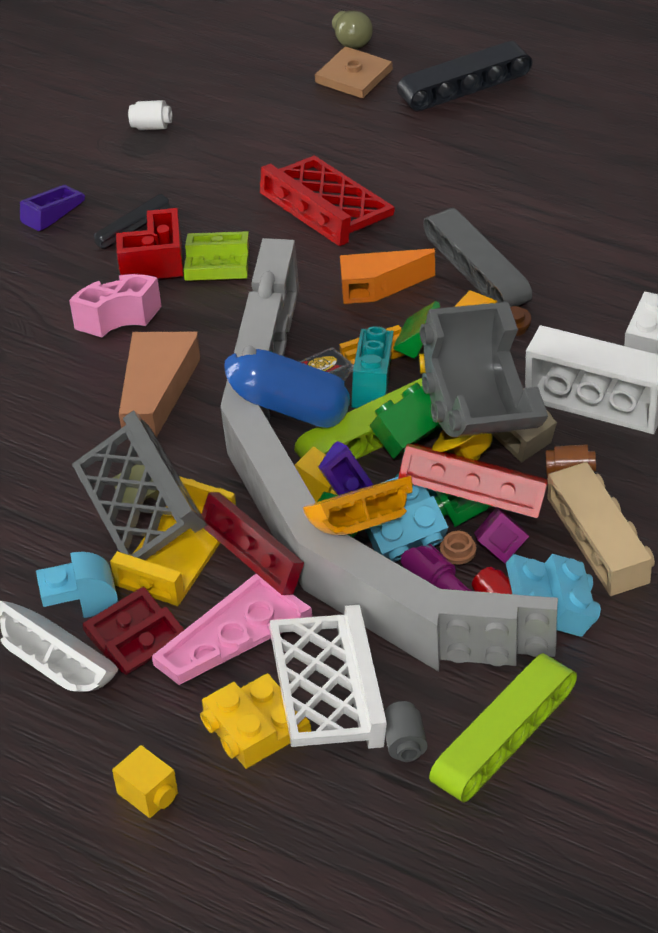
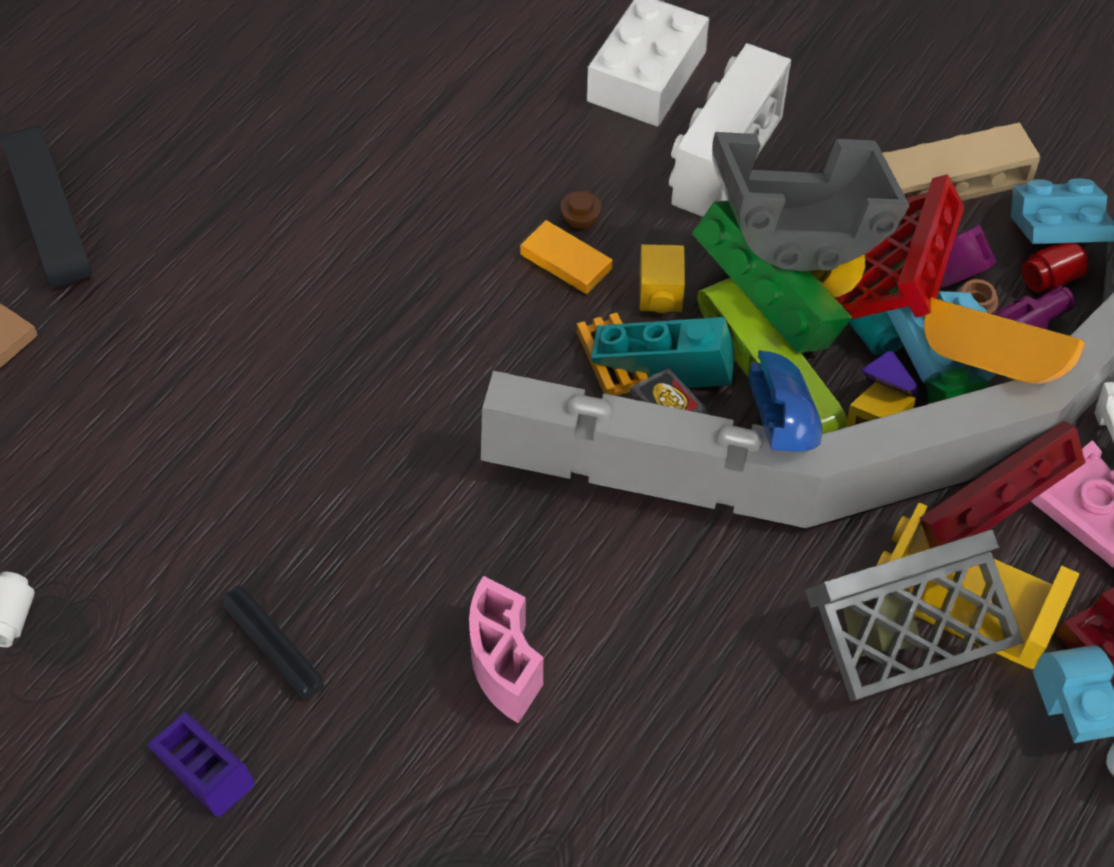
camera: 90 degrees left, 10 degrees up
(154, 250) = (373, 585): red brick -> none
(157, 374) = (666, 608): nougat slope -> none
(216, 255) = (382, 529): lime slope -> none
(318, 208) = (294, 407): red fence -> none
(381, 274) = (476, 331): orange slope -> none
(409, 337) = (604, 295): green slope -> none
(476, 258) = (458, 231): dark grey beam -> none

